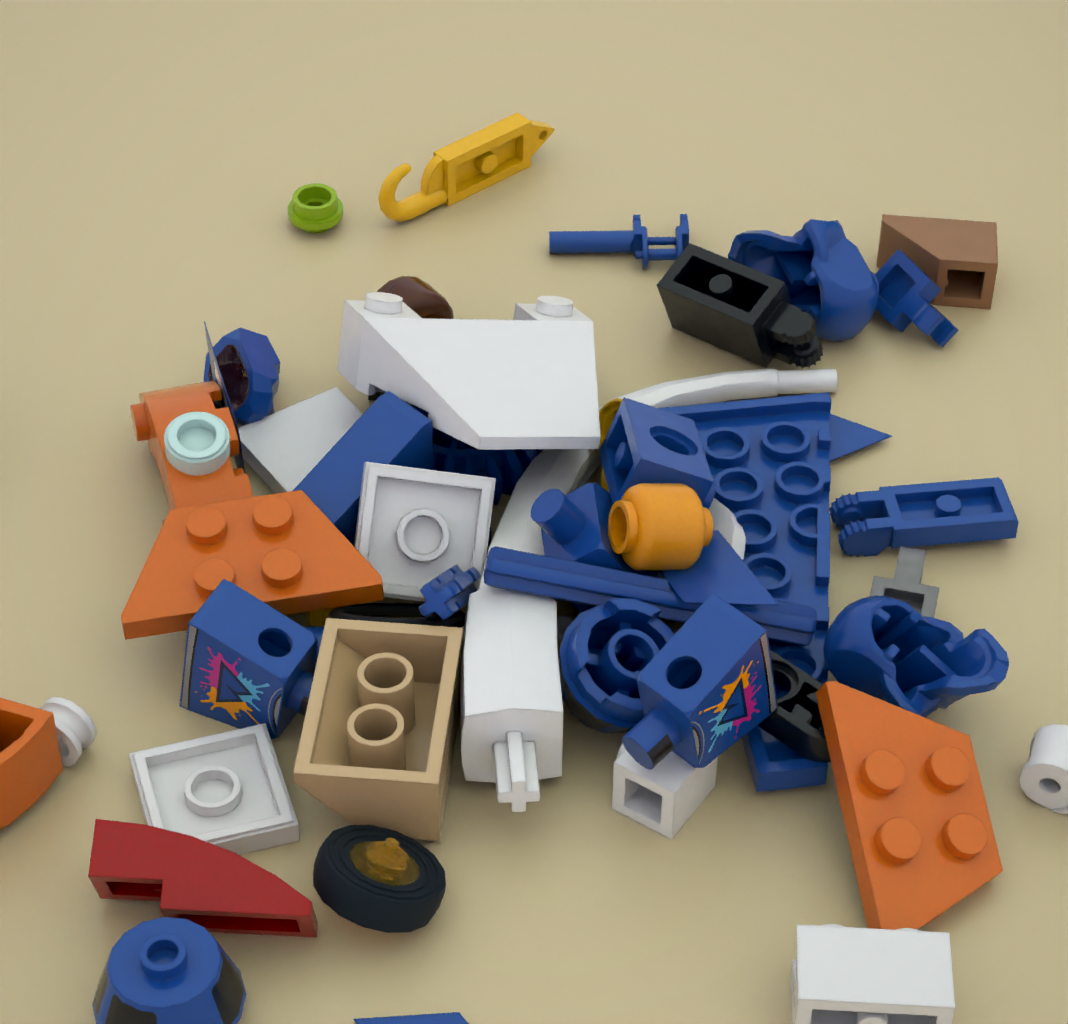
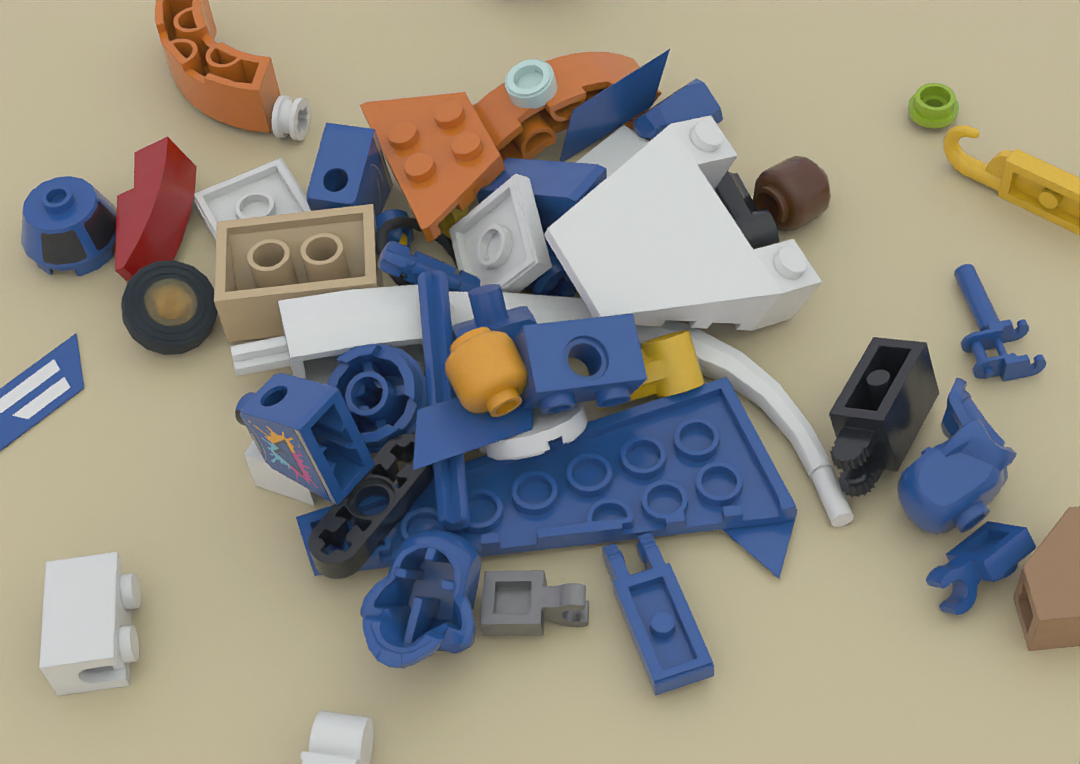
camera: 85 degrees right, 10 degrees up
(907, 808) = (259, 623): orange wing -> none

